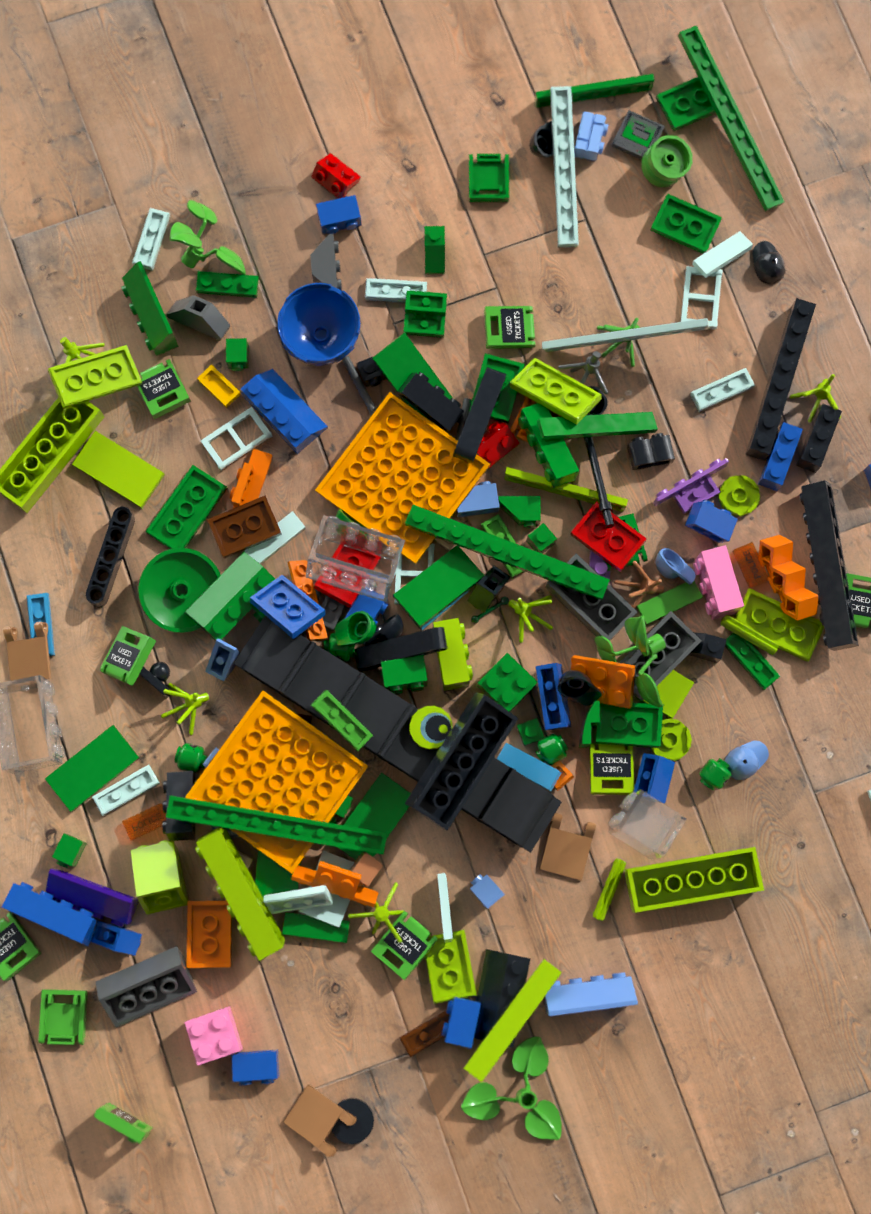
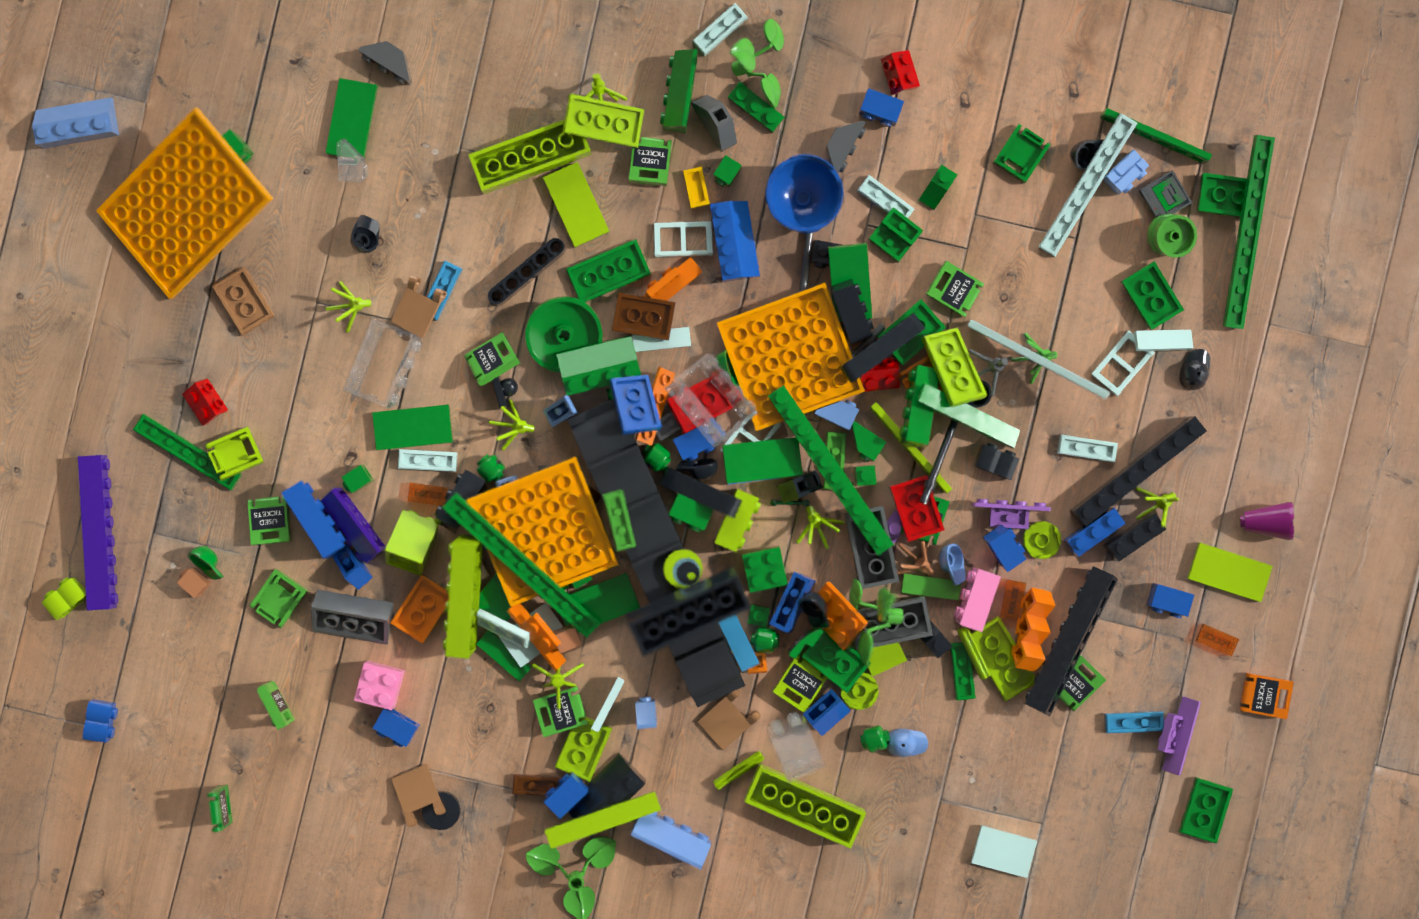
camera: 40 degrees right, 10 degrees up
(355, 629) = (674, 453): green cap -> none

